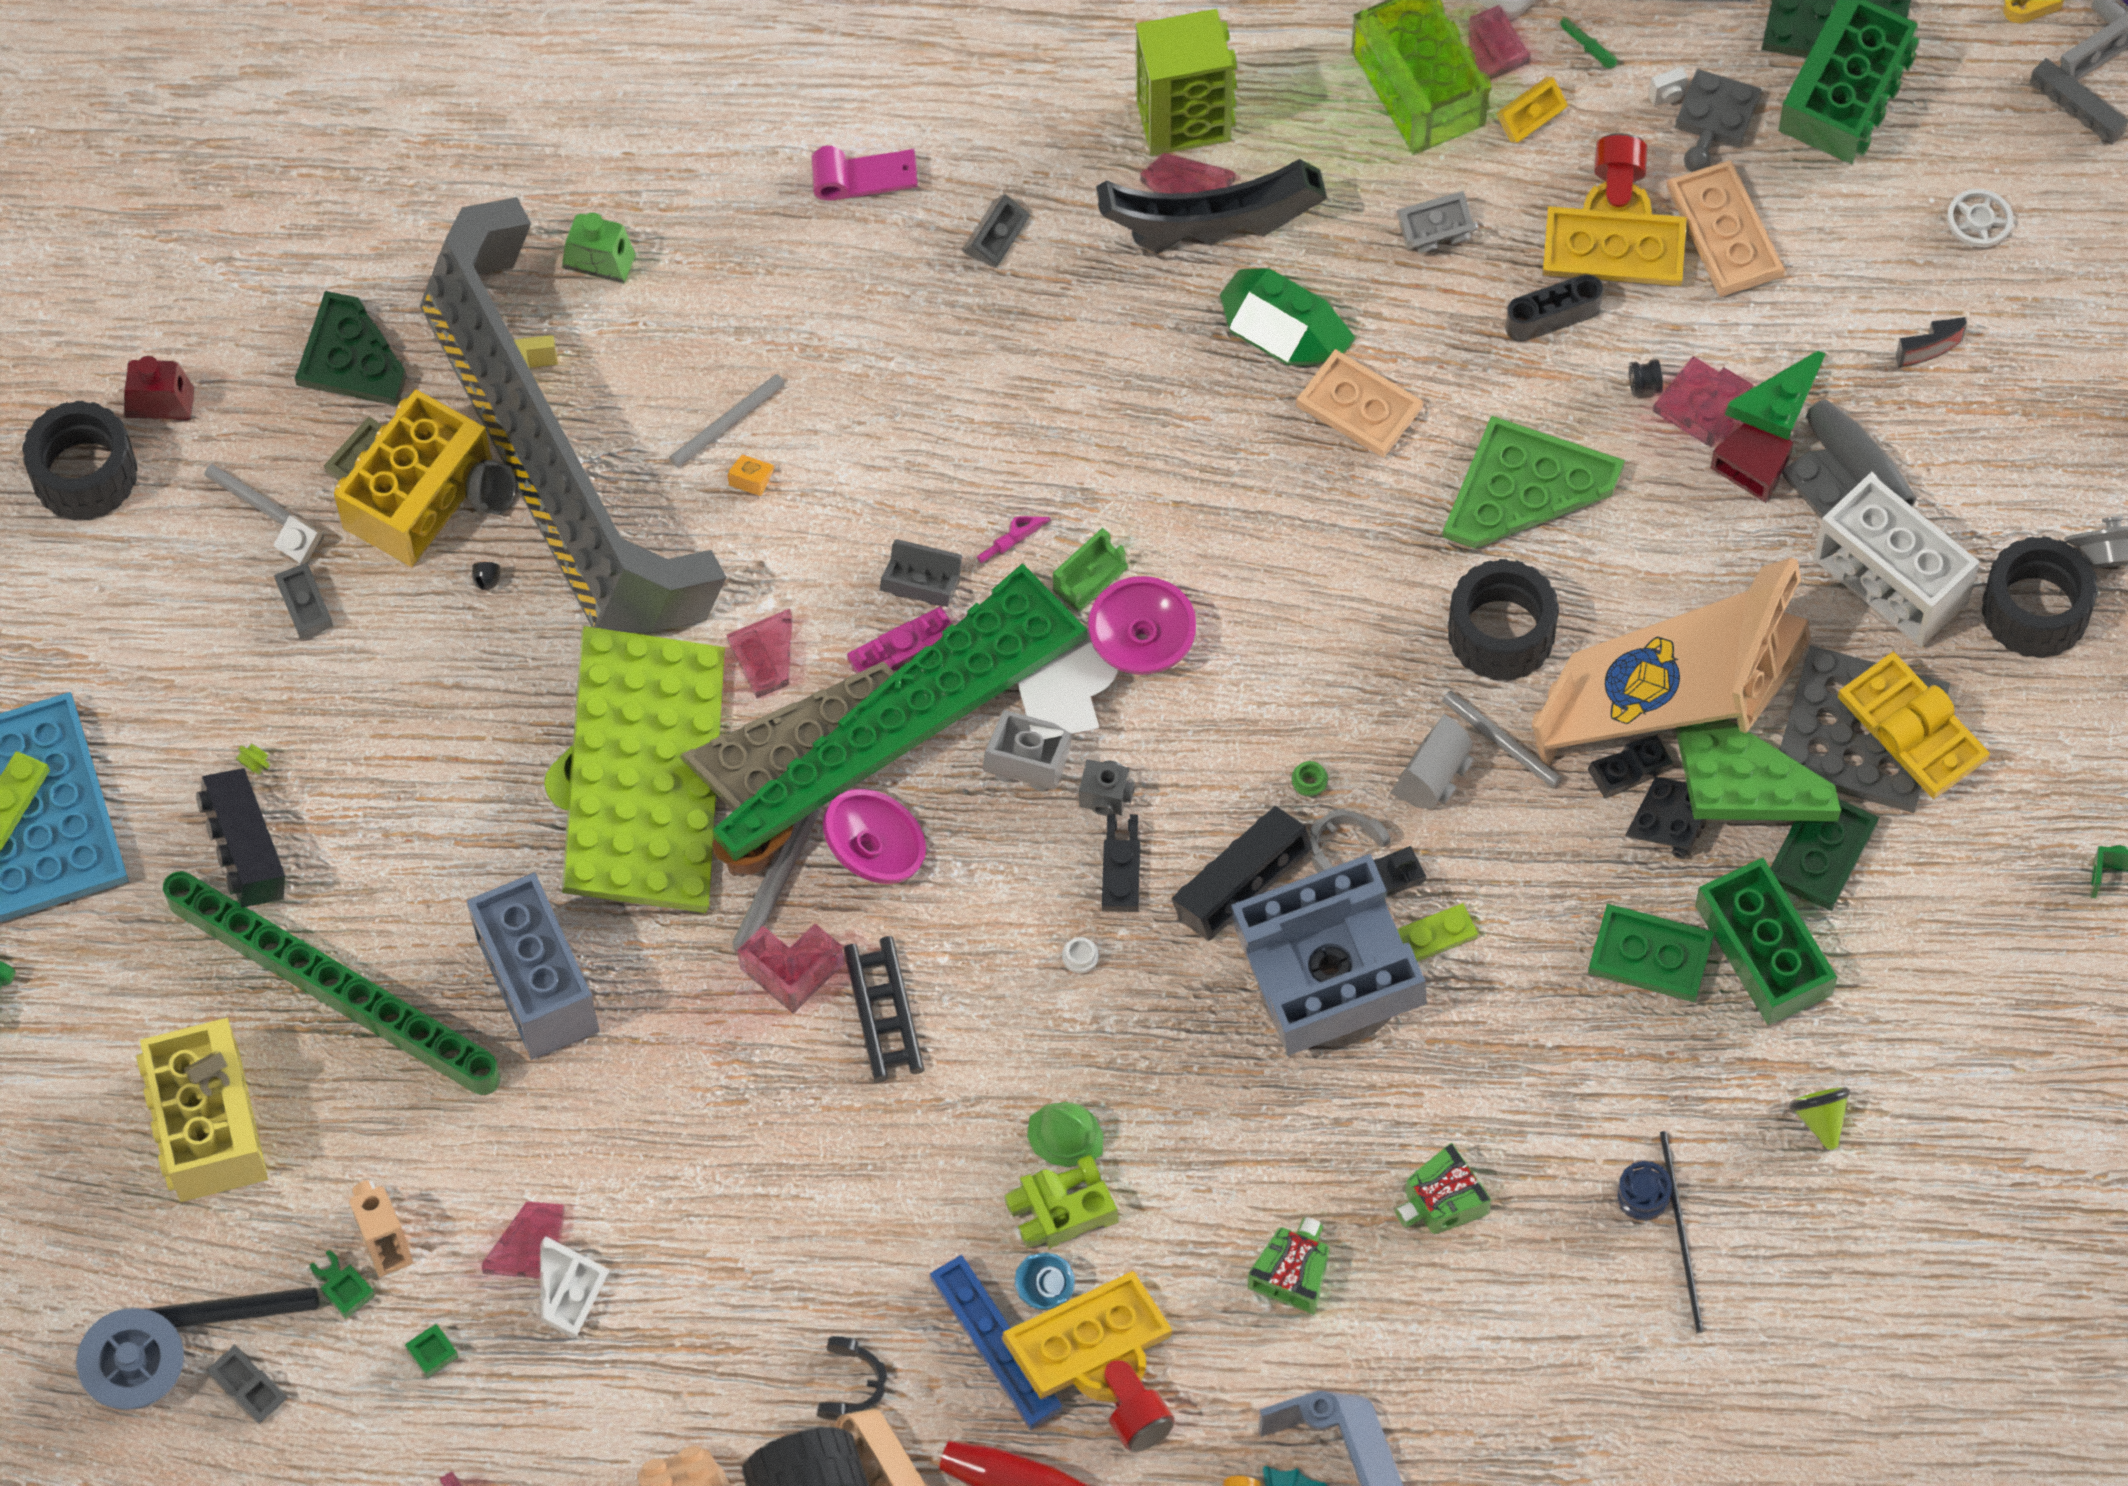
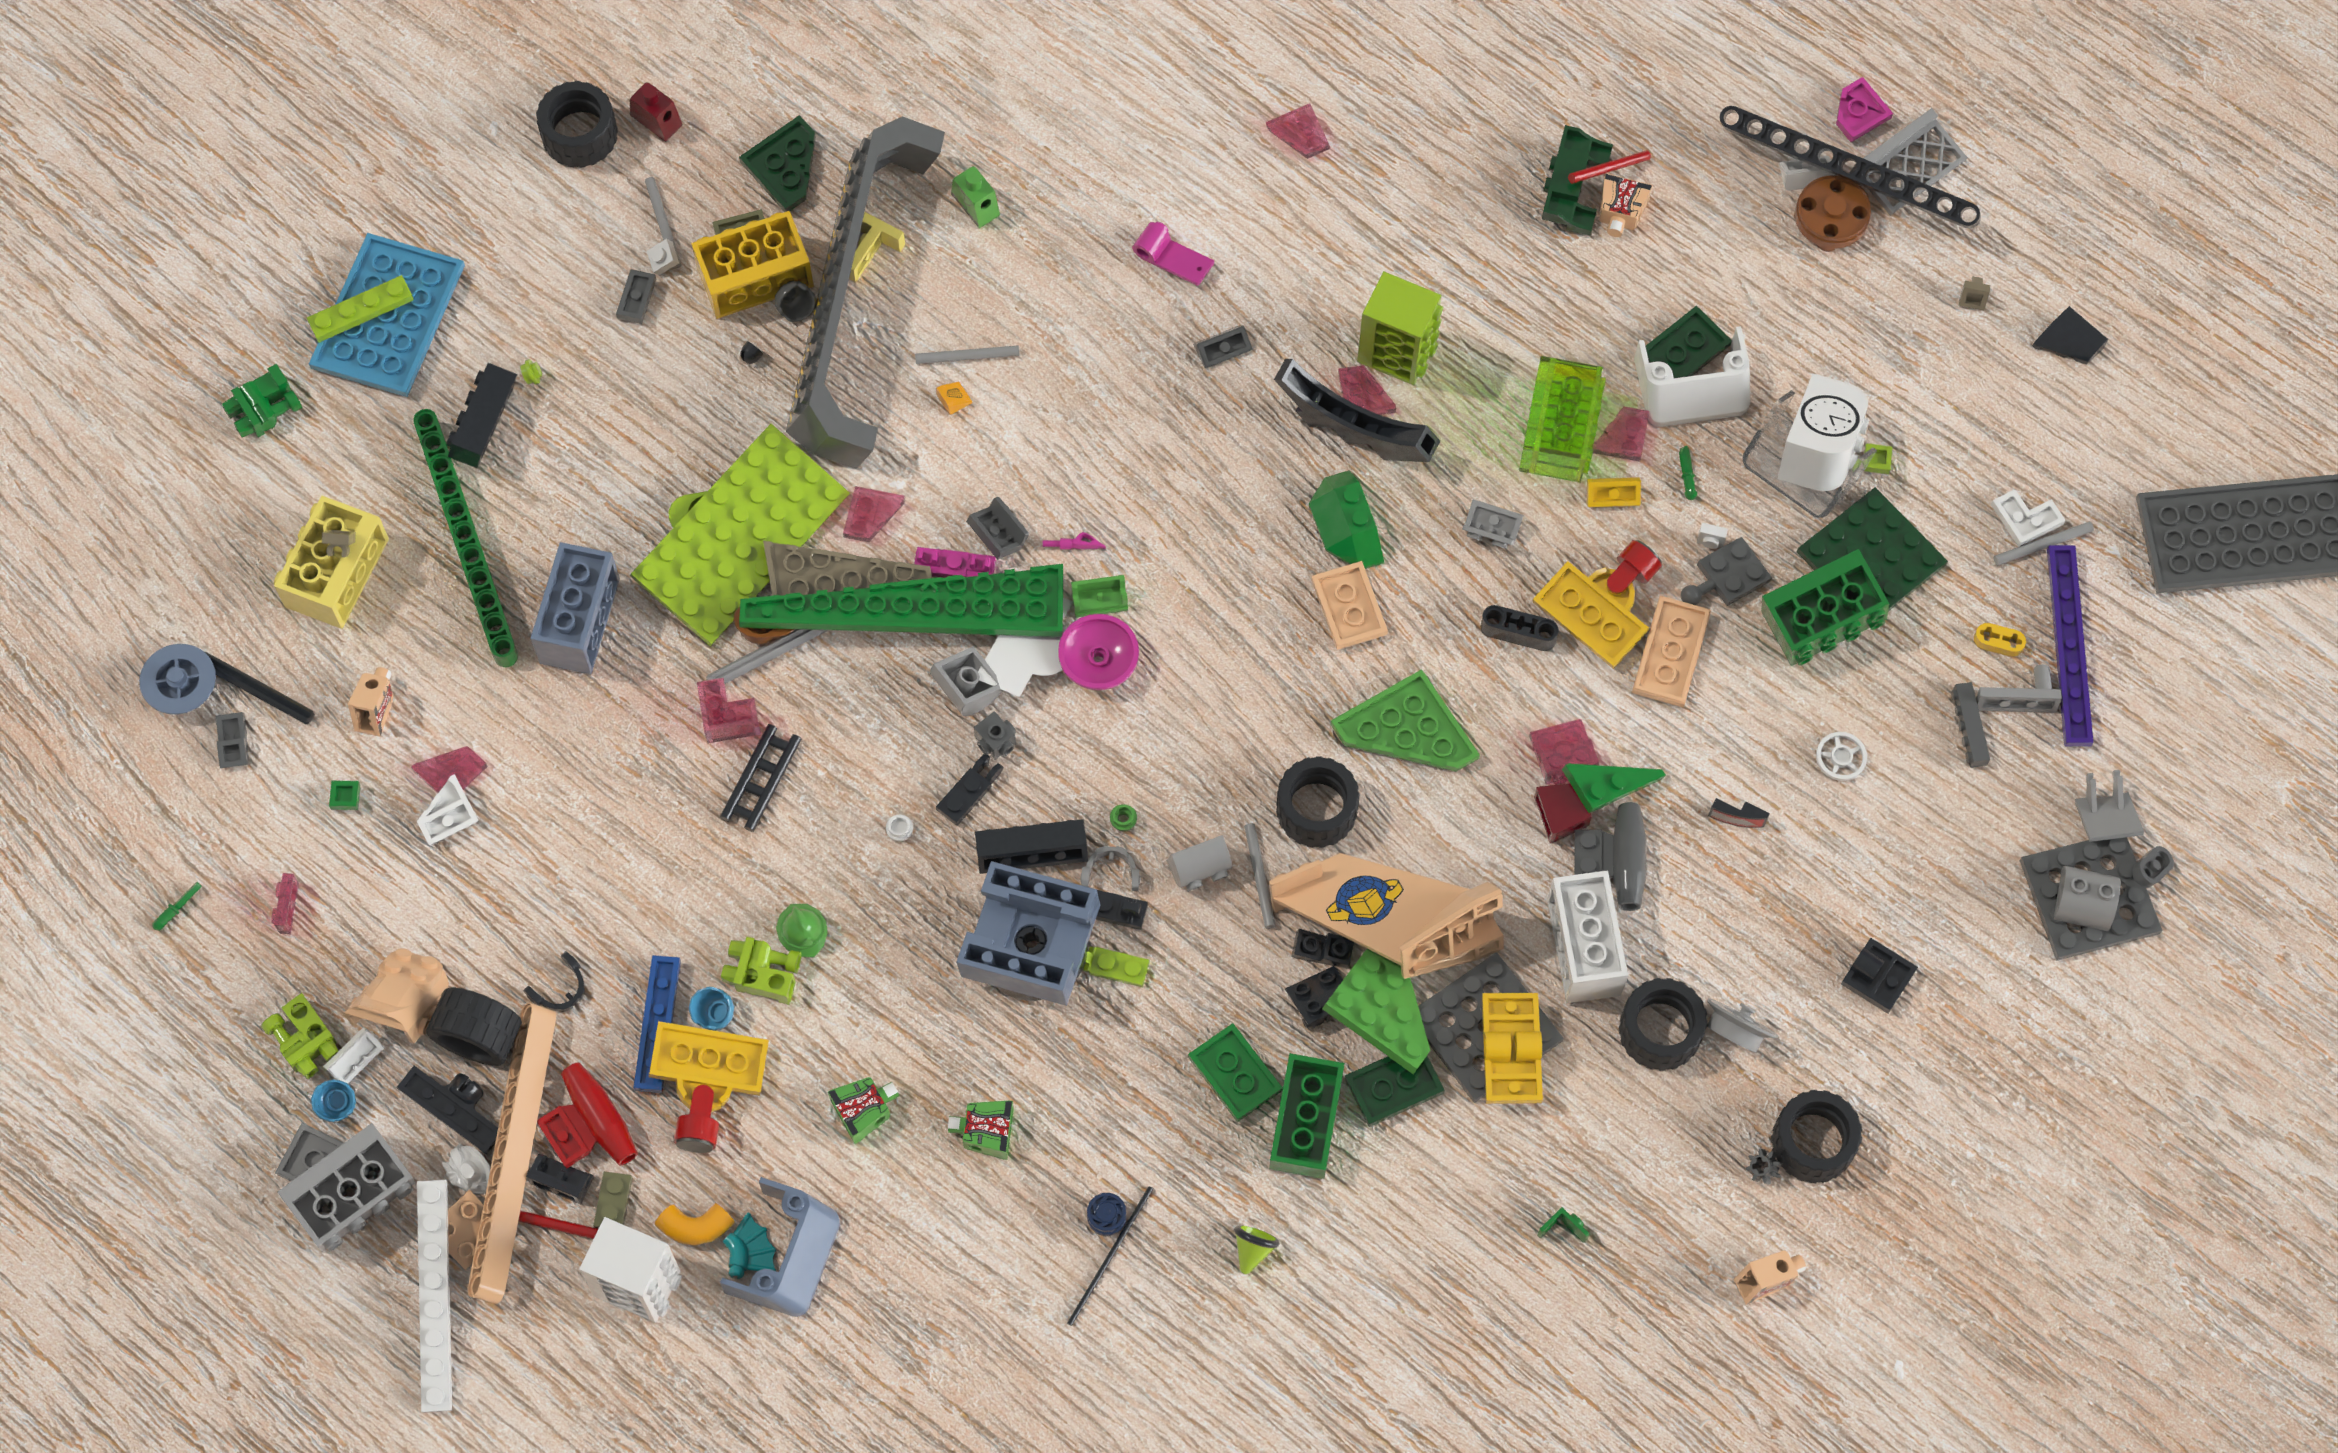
camera: 35 degrees right, 5 degrees up
(344, 1288) = (328, 723): green plate -> none
(874, 836) = (848, 666): dark pink dish -> none
(1645, 377) = (1538, 711): black wheel -> none

